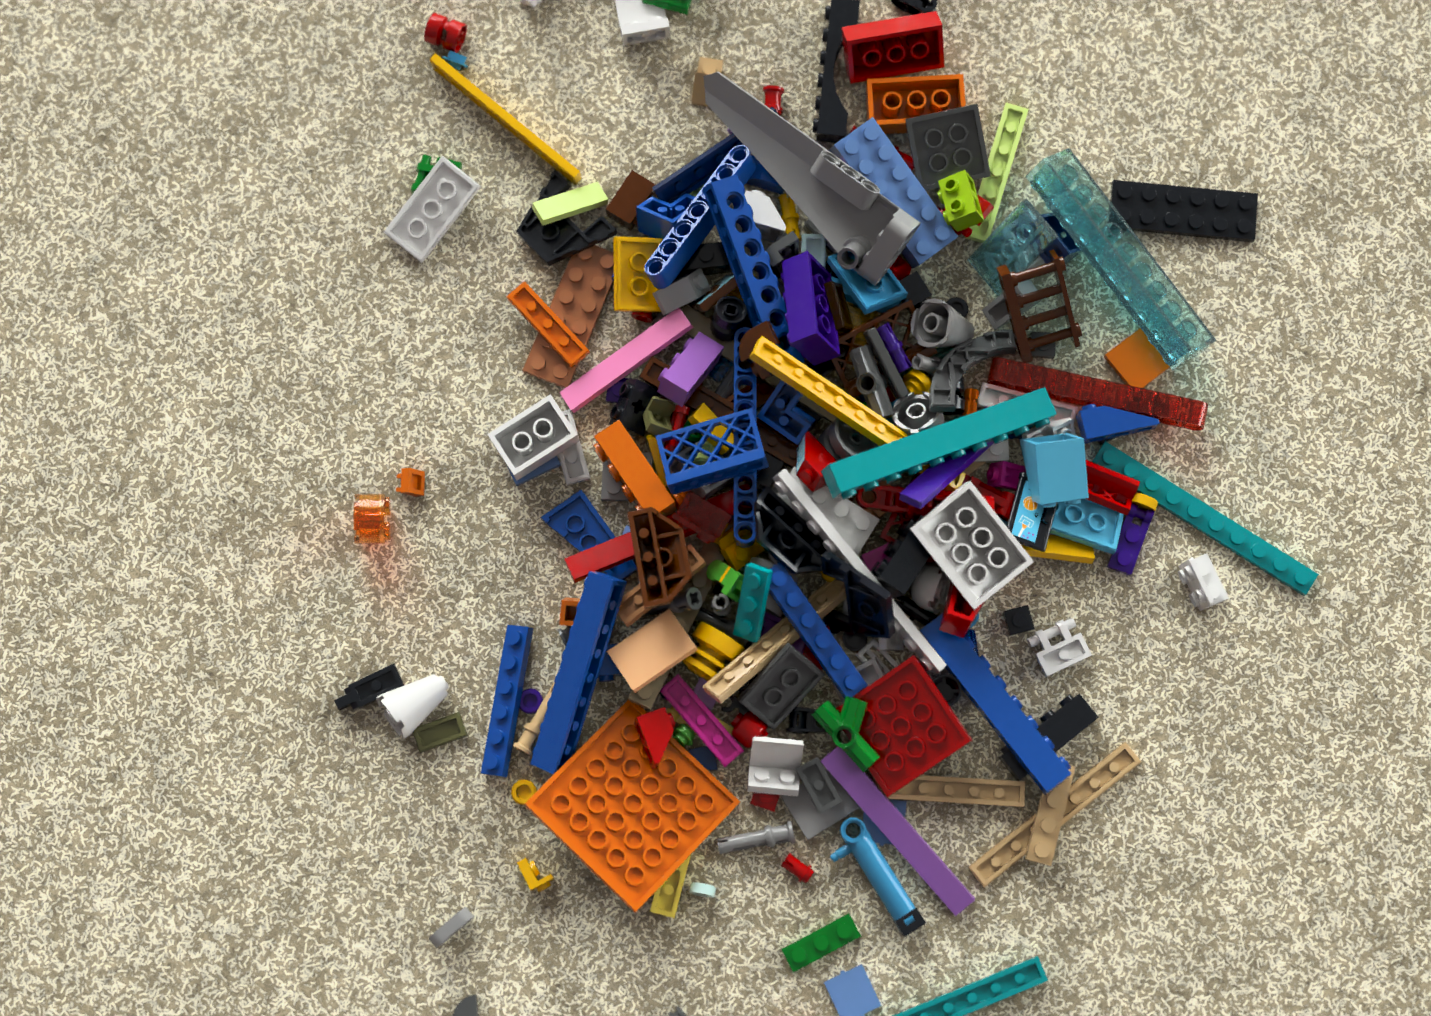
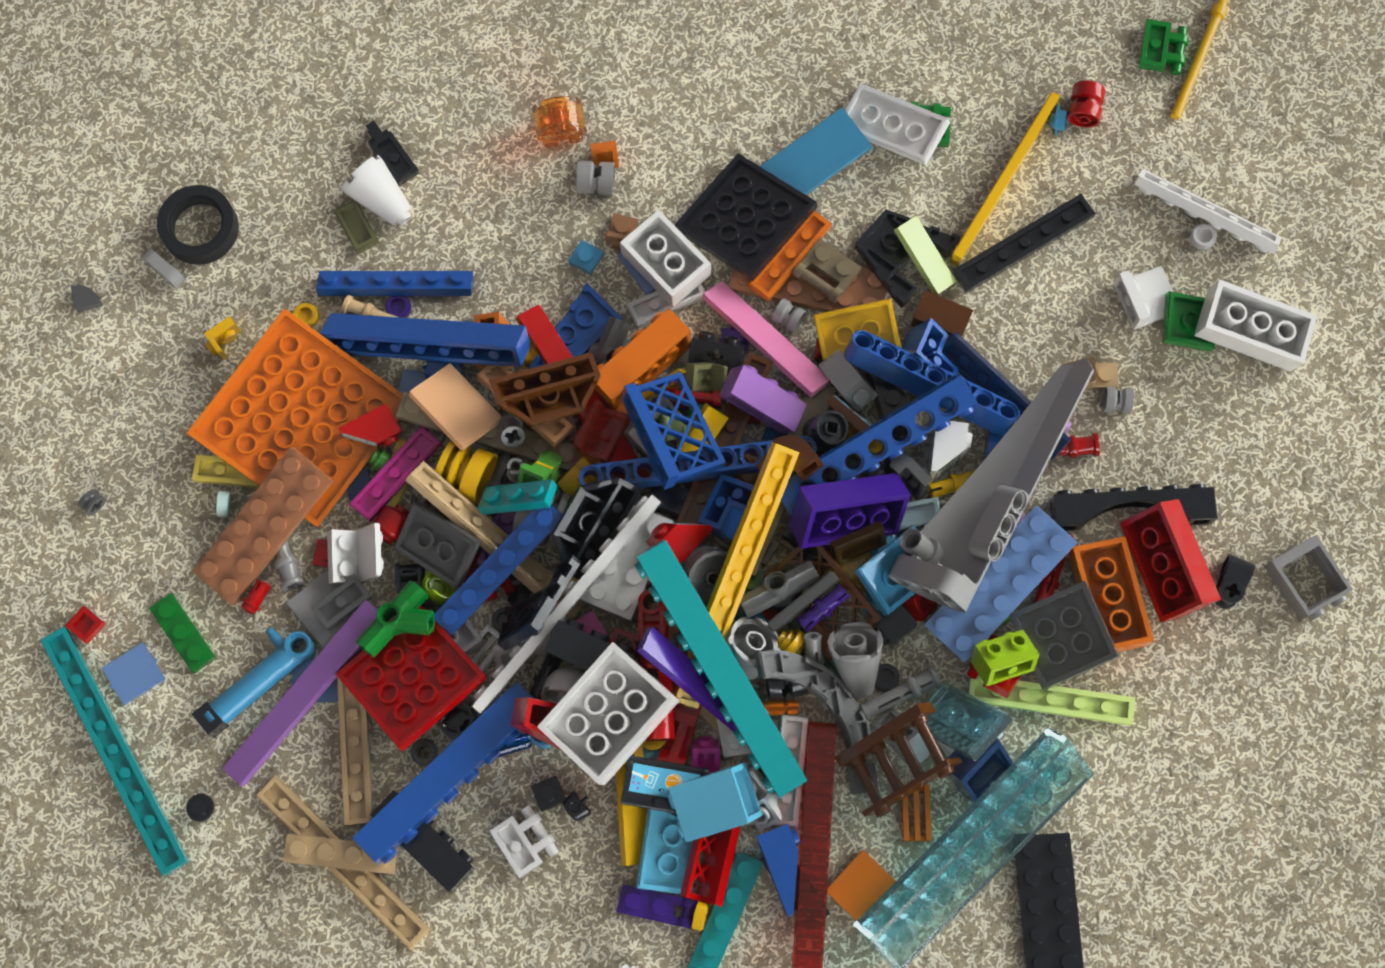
camera: 80 degrees right, 5 degrees down
(380, 882) = (186, 198): none -> black tyre
(432, 501) = (595, 177): none -> light grey wheel
(451, 285) = (819, 153): none -> dark azure tile
(492, 478) = (619, 228): none -> medium nougat bracket
(501, 359) = (745, 216): none -> black plate
(511, 515) = (586, 257): none -> dark azure plate
(565, 287) = (832, 265): none -> dark tan plate
(571, 115) = (1023, 243): none -> black plate
(605, 336) = (788, 315): none -> light grey wheel
(612, 695) = (410, 380): none -> medium blue tile
(613, 507) = (611, 340): none -> dark grey piece
(734, 851) = (263, 526): none -> nougat plate
(735, 62) = (1118, 400): none -> light grey wheel
(820, 693) = (437, 589): none -> lime hair
(969, 288) = (911, 688): none -> light grey pin
(974, 727) = (420, 744): none -> dark grey plate
(988, 940) = (200, 807): none -> black plate
(1034, 597) = (576, 807): none -> black piece
(1084, 296) = (927, 816): none -> orange tile

